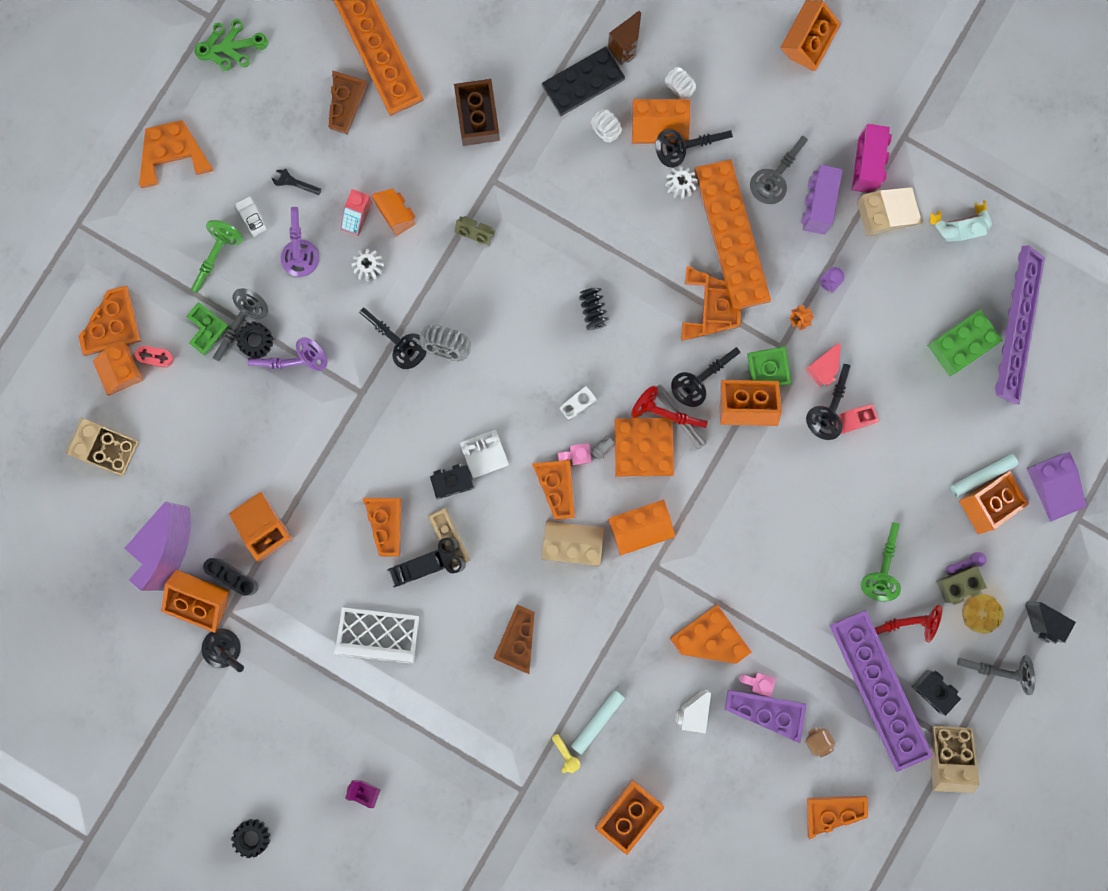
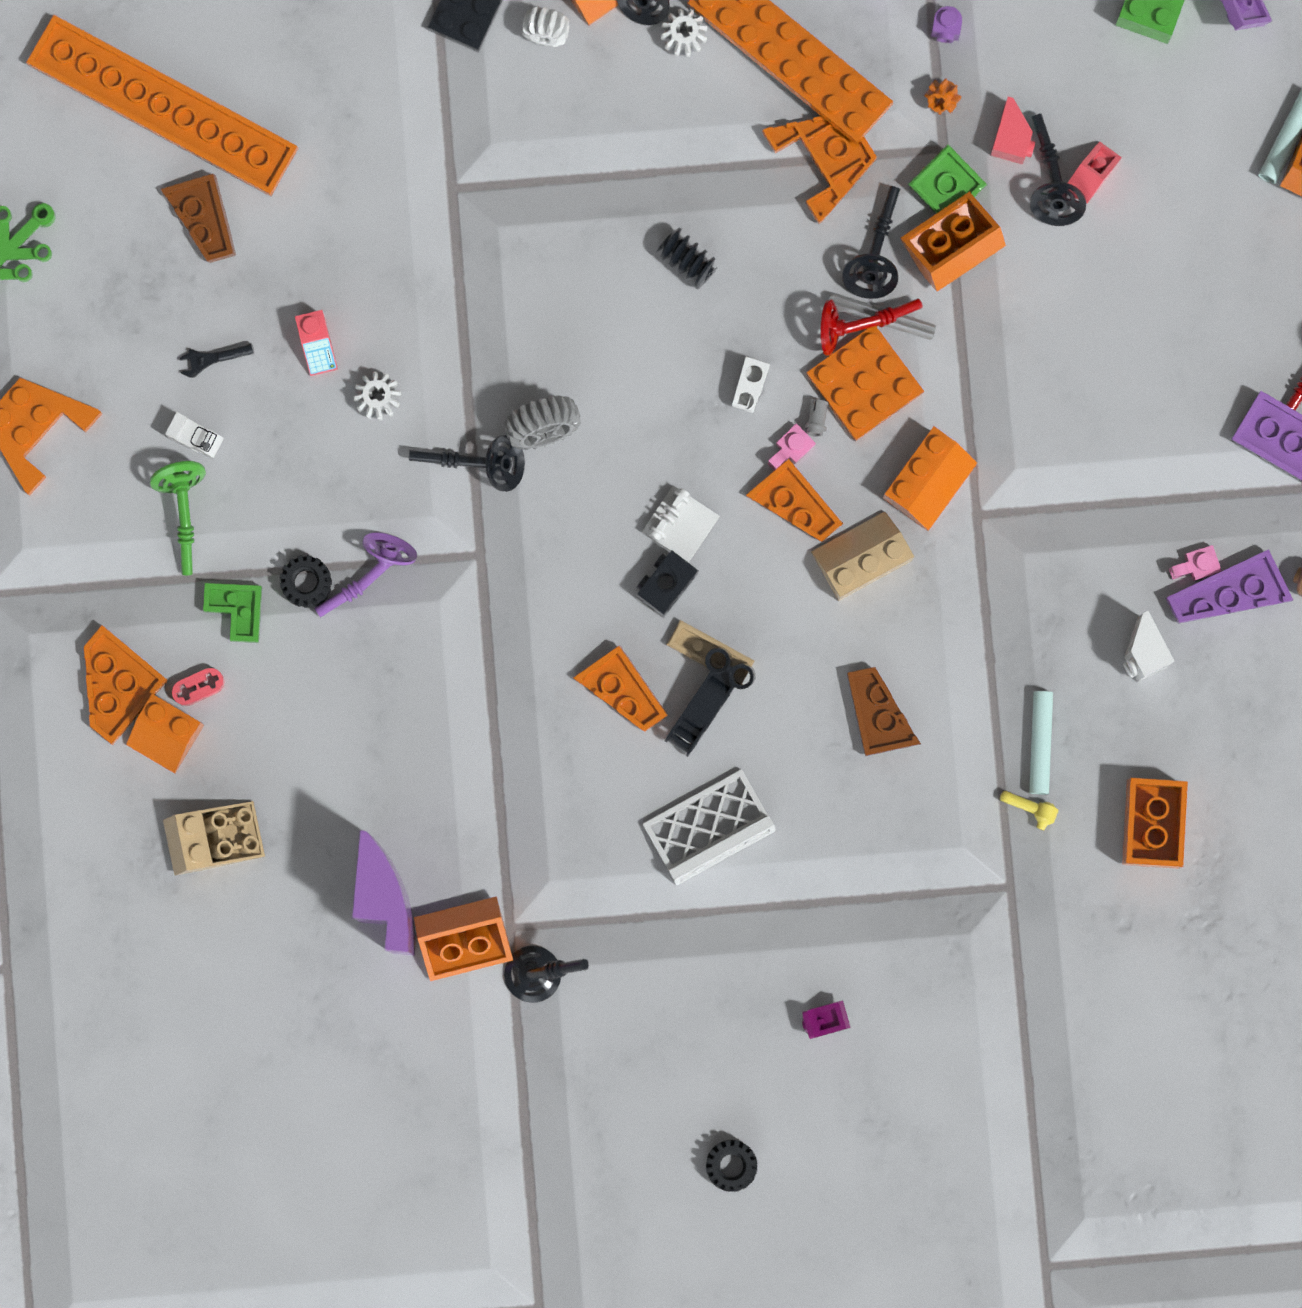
camera: 35 degrees left, 0 degrees up
(221, 576) = (470, 880): black beam -> none
(245, 309) = (270, 550): dark grey dish -> none
(260, 527) = (476, 796): orange slope -> none
(298, 252) = (281, 437): medium lavender dish -> none
(394, 211) = (363, 308): orange slope -> none
(466, 228) = (488, 263): olive hinge -> none
(477, 112) = (377, 118): reddish brown brick -> none
(711, 638) = (1104, 552): orange plate -> none
(882, 577) = (1255, 342): bright green dish -> none

